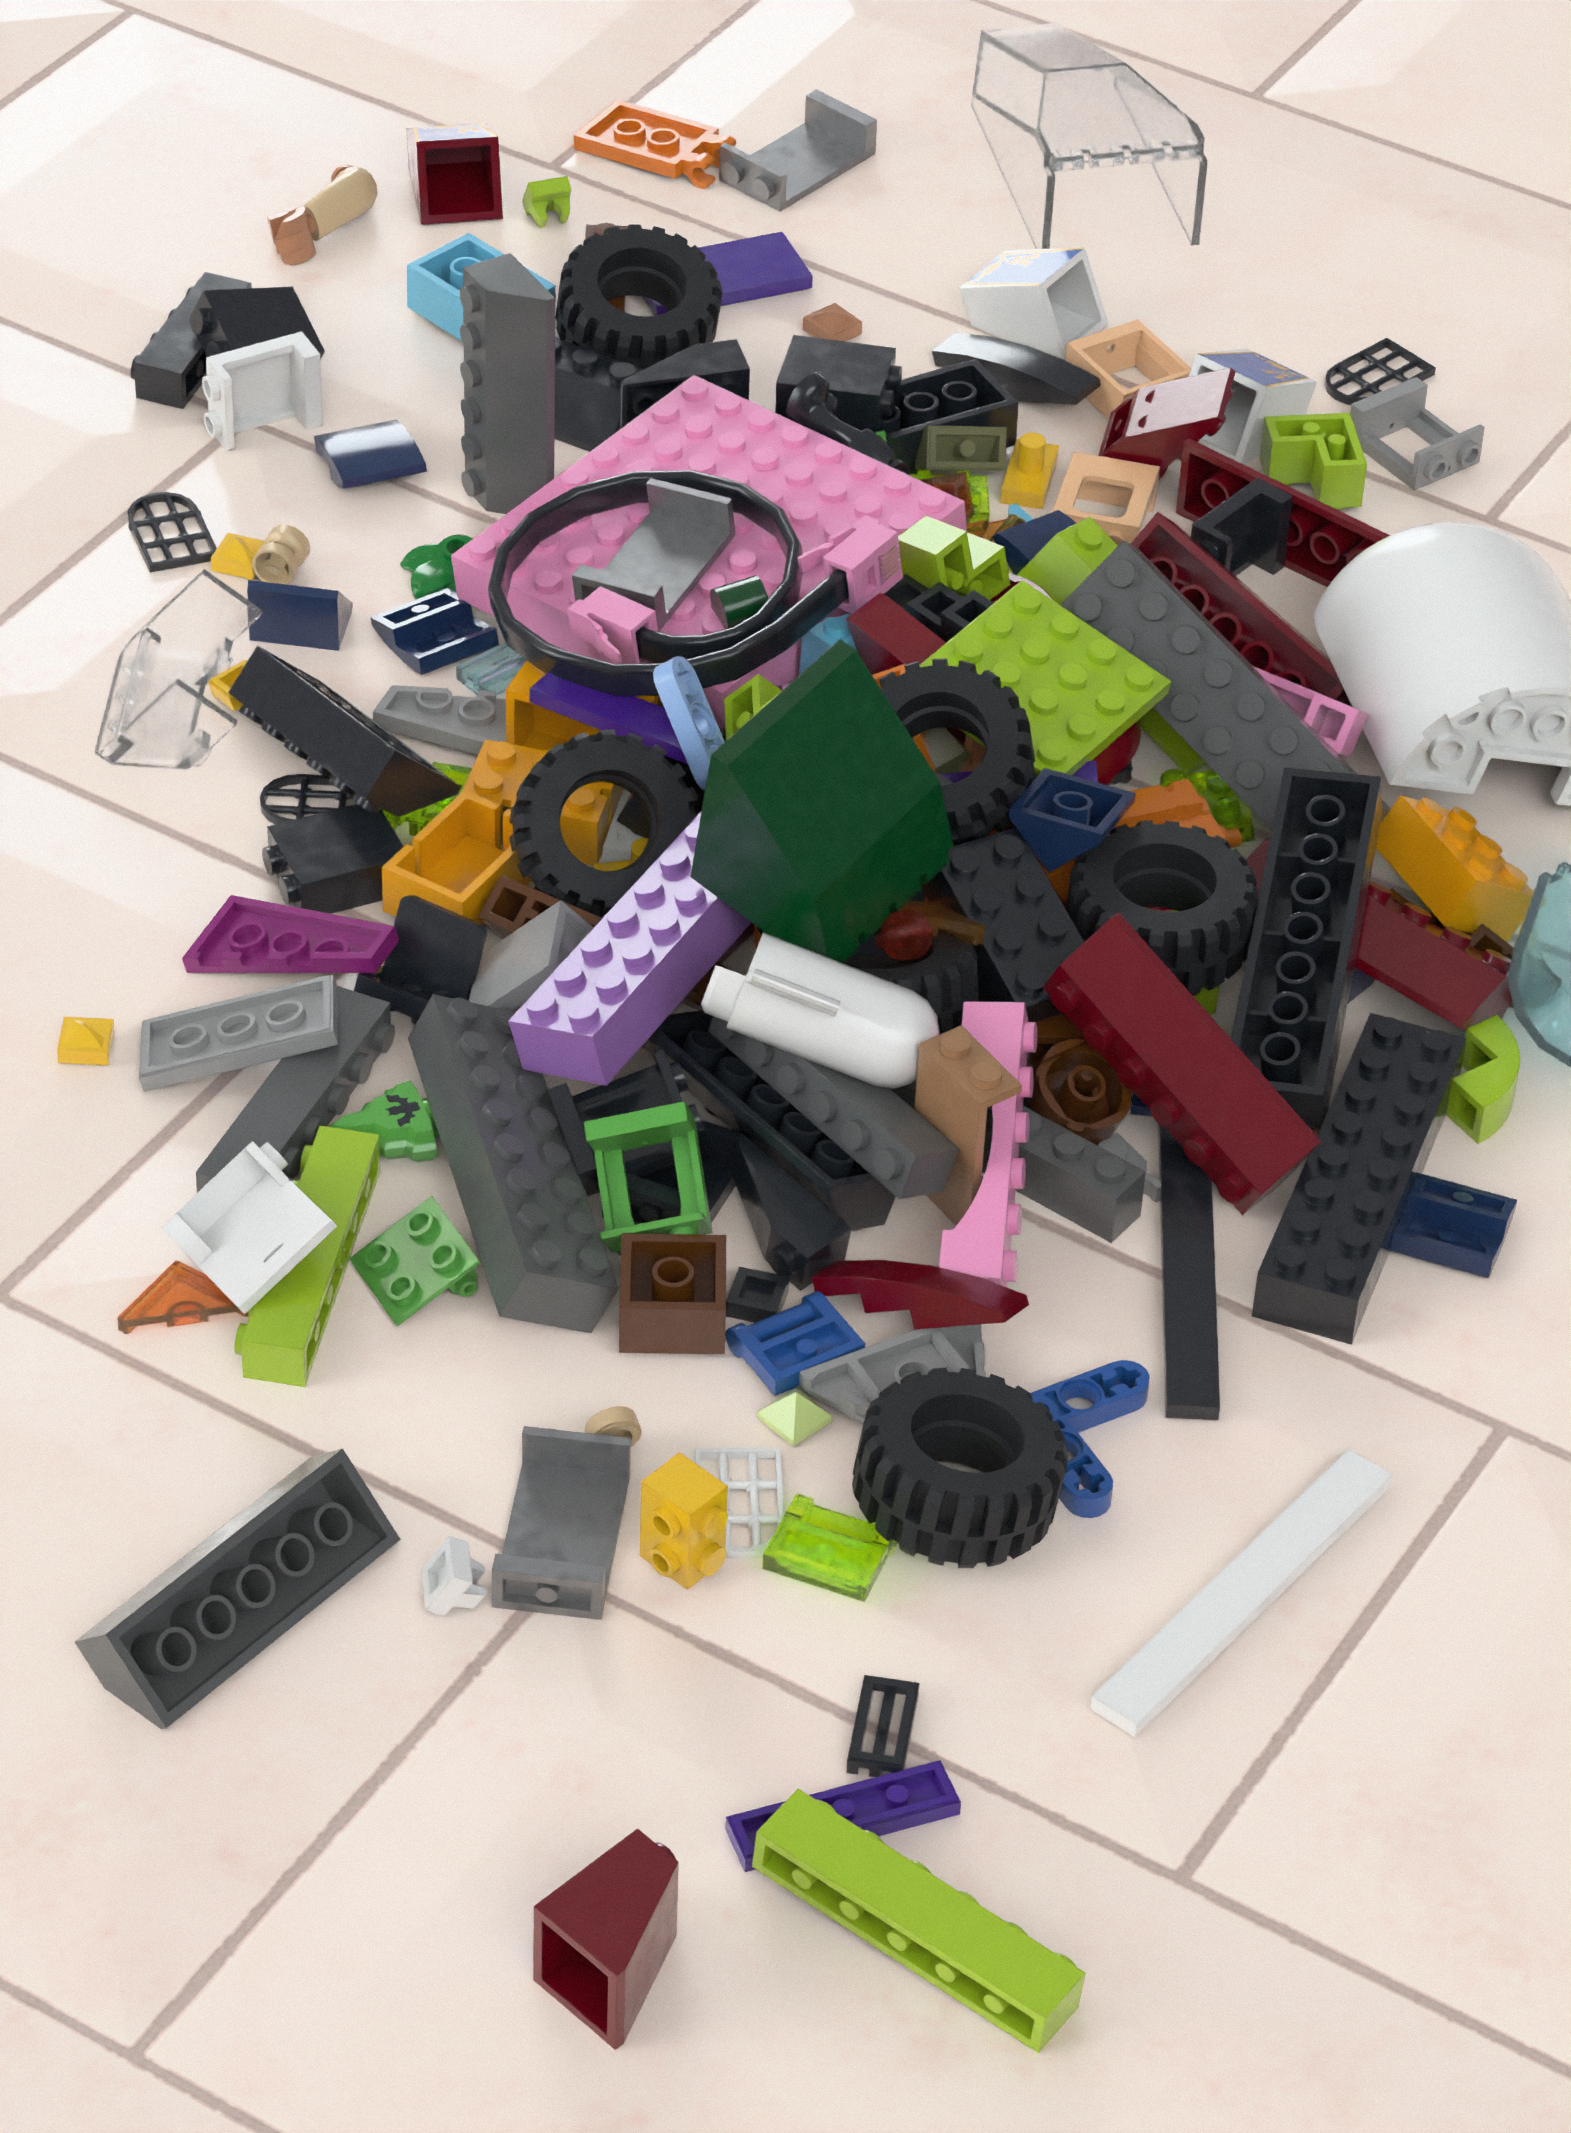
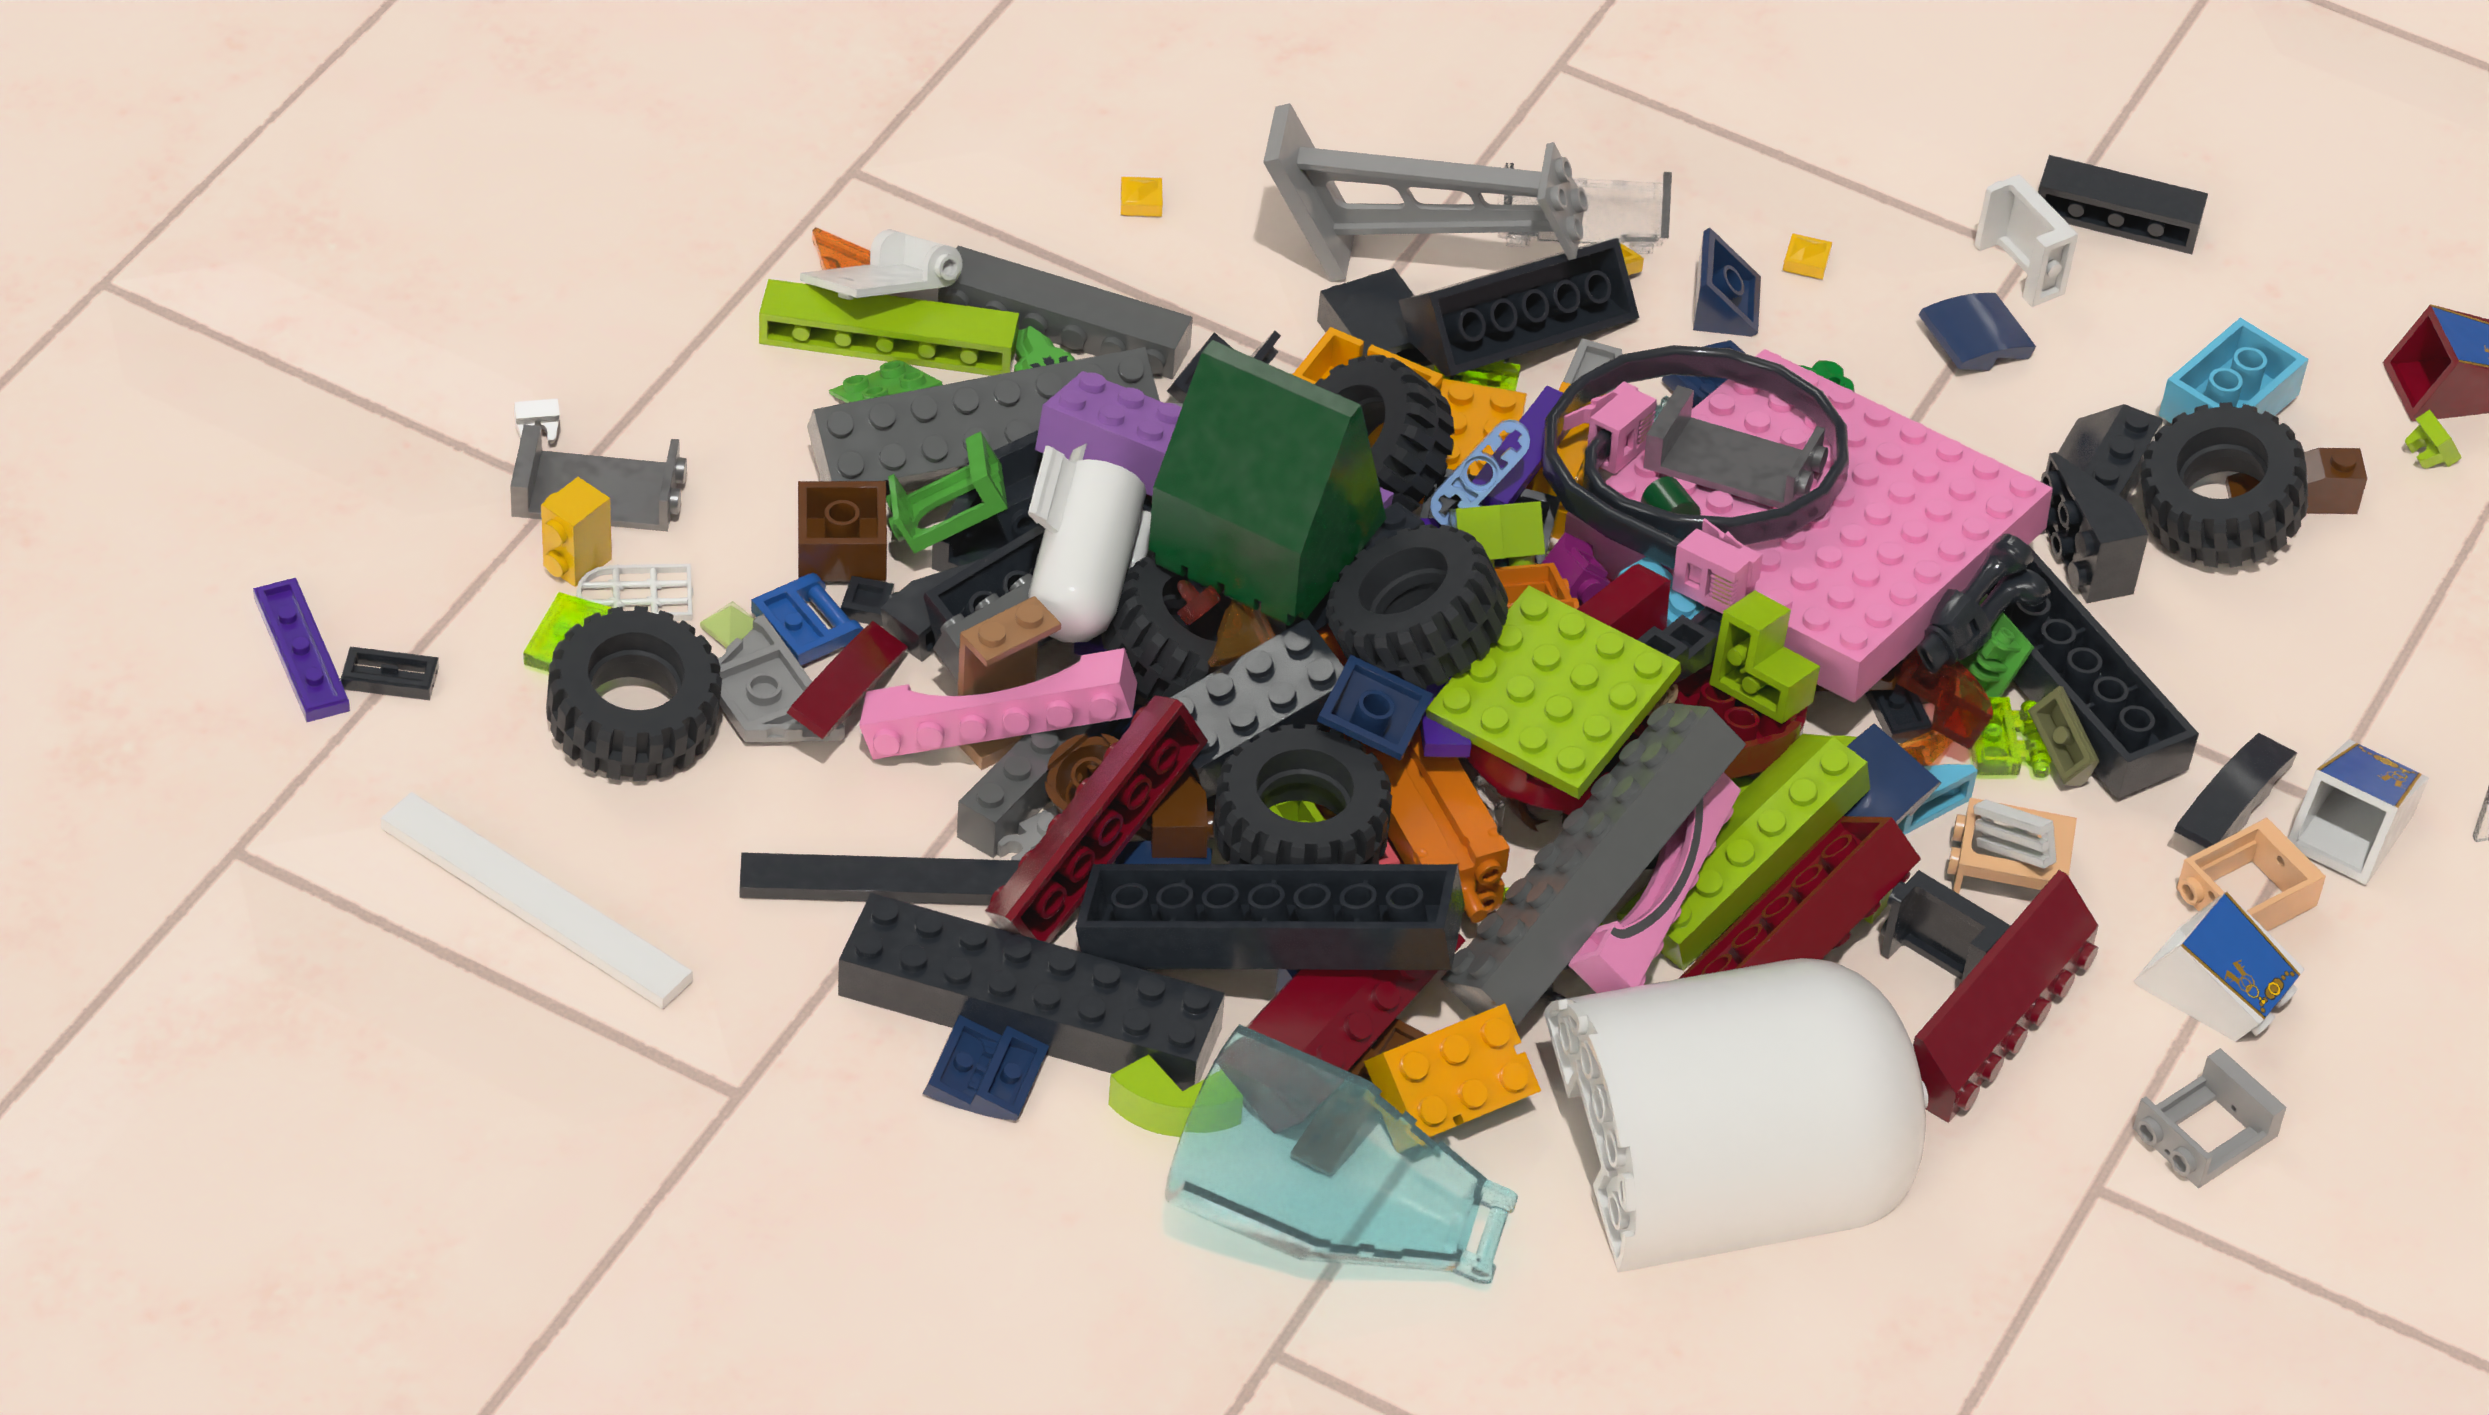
camera: 85 degrees right, 5 degrees up
(170, 562) = (1831, 224): black window -> none
(178, 844) = (1329, 223): none -> light grey piece
(239, 1033) = (1135, 267): light grey tile -> none
(239, 1589) = (525, 304): dark grey slope -> none
(249, 316) = (2114, 226): black brick -> none
(281, 555) = (1800, 274): tan wheel -> none
(287, 939) = (1262, 294): magenta wing -> none
(343, 200) = (2367, 286): piece -> none
(507, 383) = (1977, 334): dark grey slope -> none
(608, 1934) = (156, 496): dark red slope -> none
(615, 1421) = (697, 507): tan tile -> none
(753, 269) = (2358, 579): dark purple tile -> none
(832, 323) = (2289, 661): nougat tile -> none
(858, 376) = (2098, 610): black brick -> none
(919, 1919) = (175, 674): lime brick -> none
(1030, 472) = (2095, 810): yellow tile -> none
(1110, 1381) = (723, 786): blue beam -> none
(1114, 477) = (2016, 841): none -> white tile
(1162, 416) = (2125, 878): slope -> none
(1317, 452) = (2130, 1026): lime brick -> none
(1397, 350) = (2354, 1108): black window -> none

